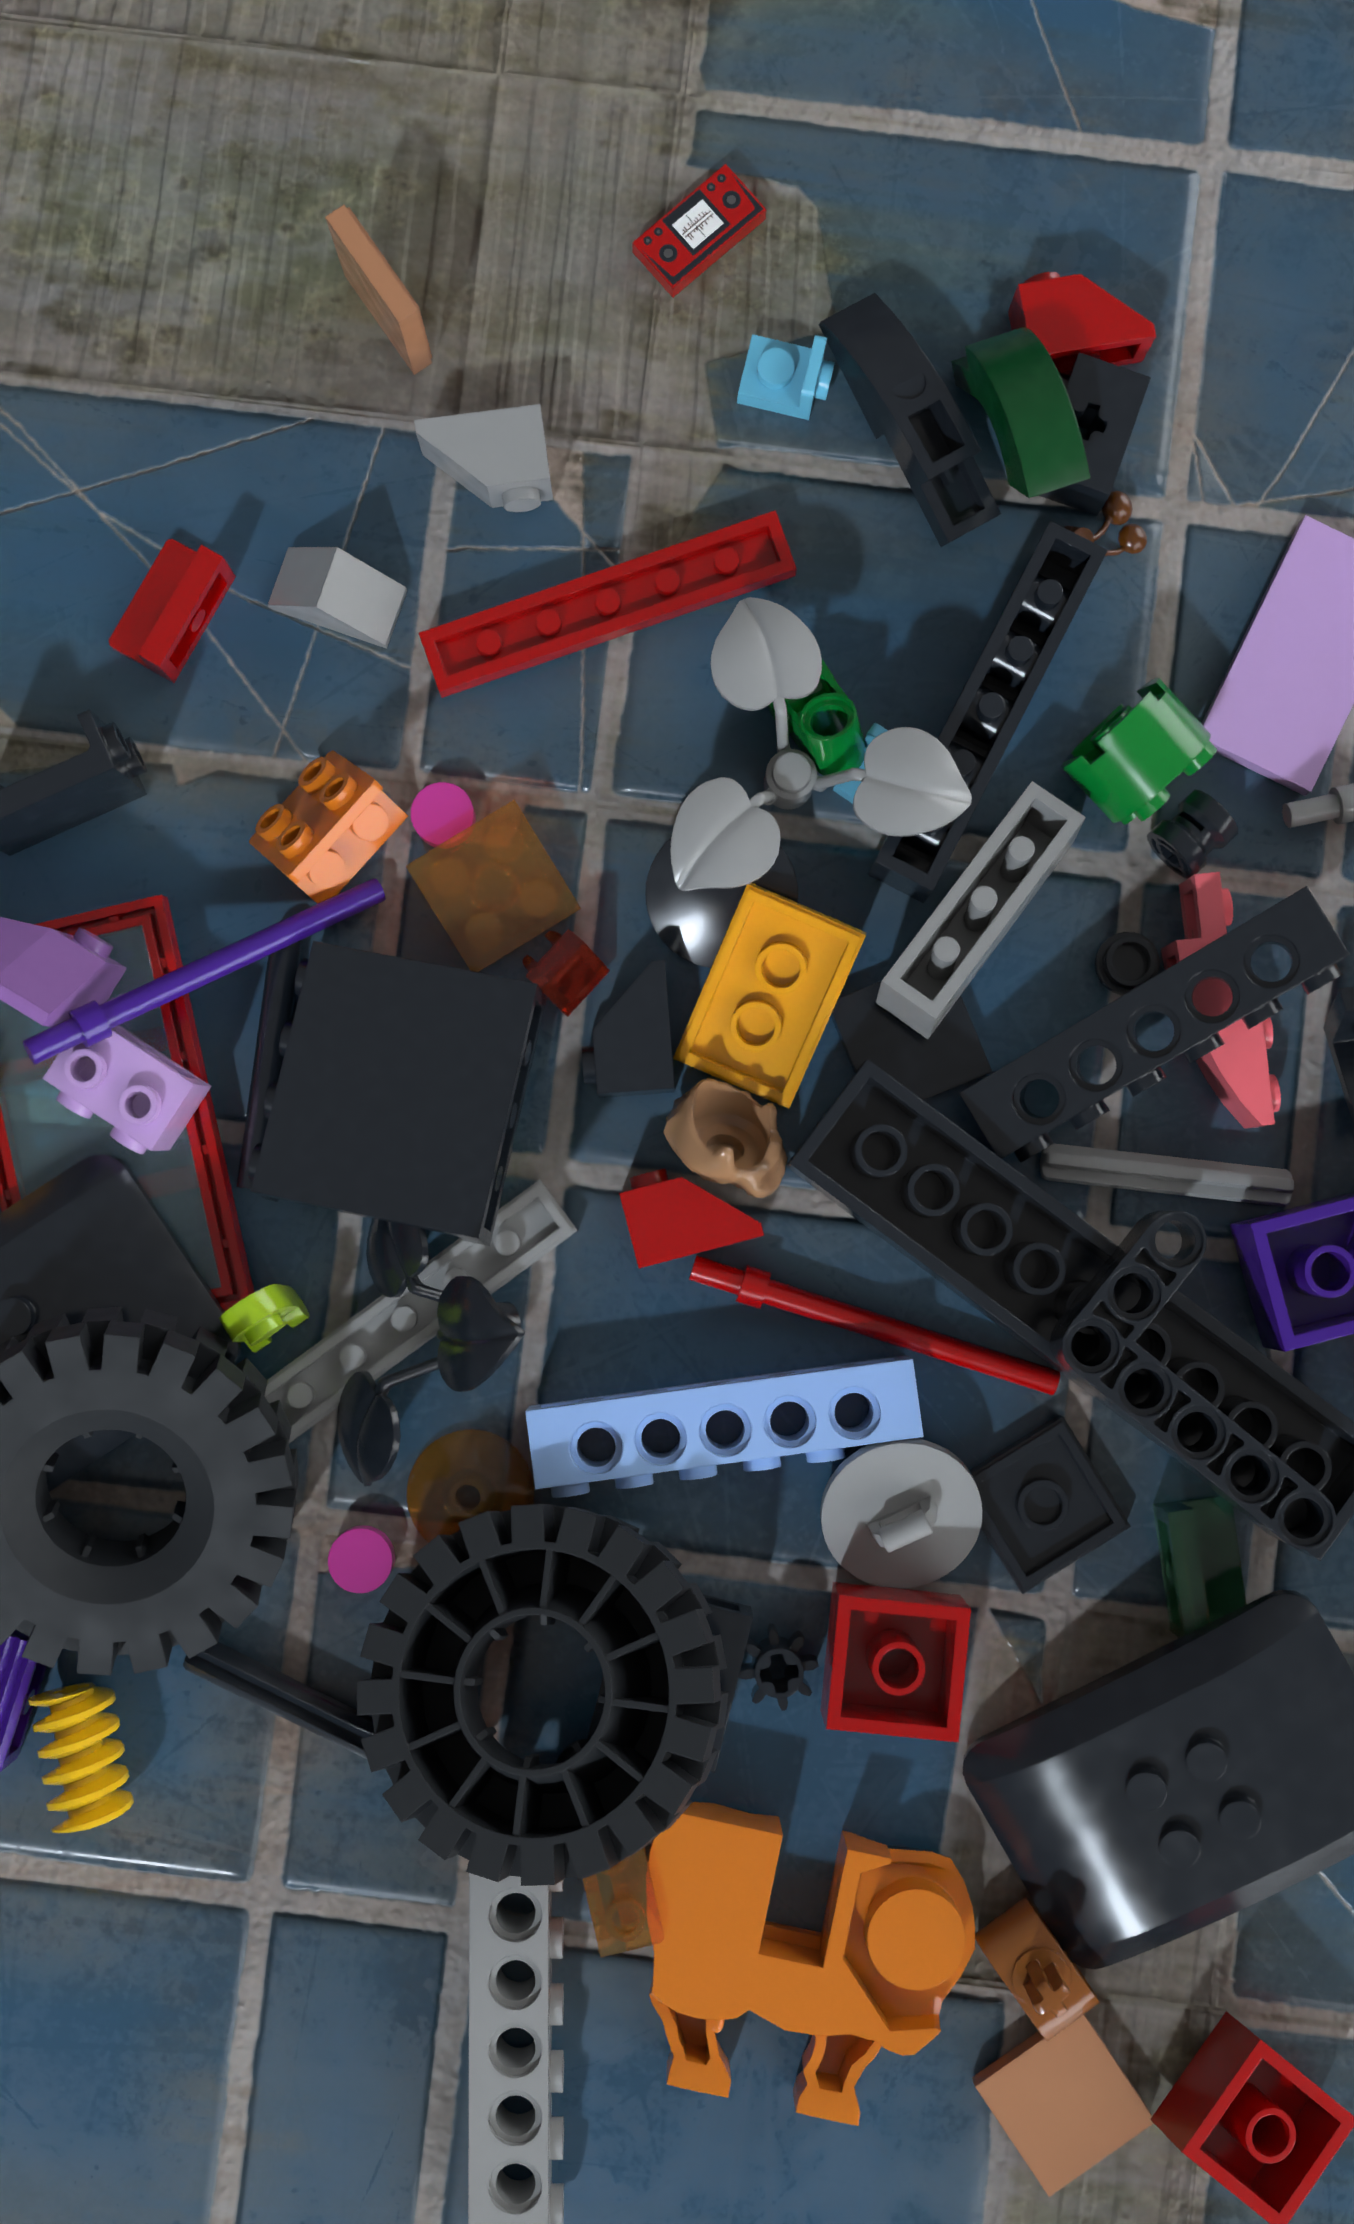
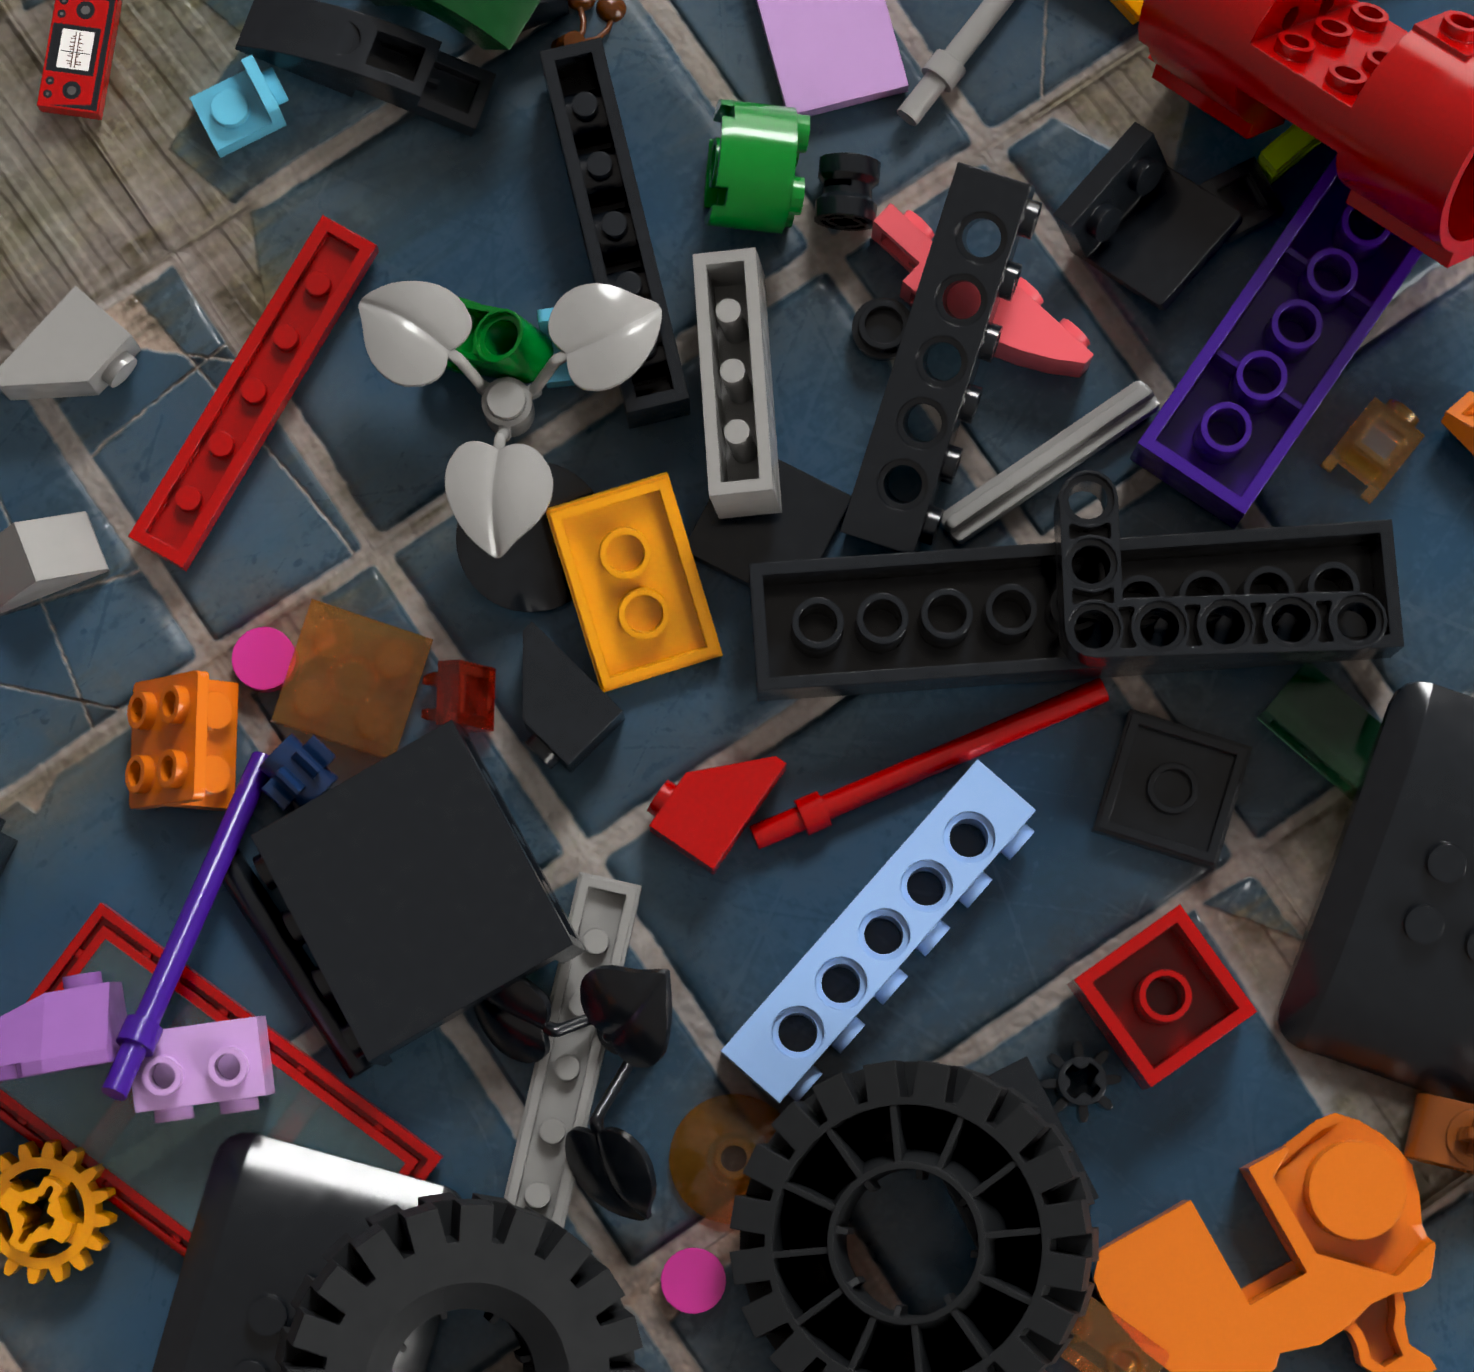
camera: 35 degrees left, 5 degrees down
(264, 1314) = (457, 1154): lime plate -> none
(392, 922) = (298, 771): none -> dark blue gear
(727, 1137) = (695, 715): medium nougat hair -> none
(901, 1513) = (1071, 885): light grey shield -> none

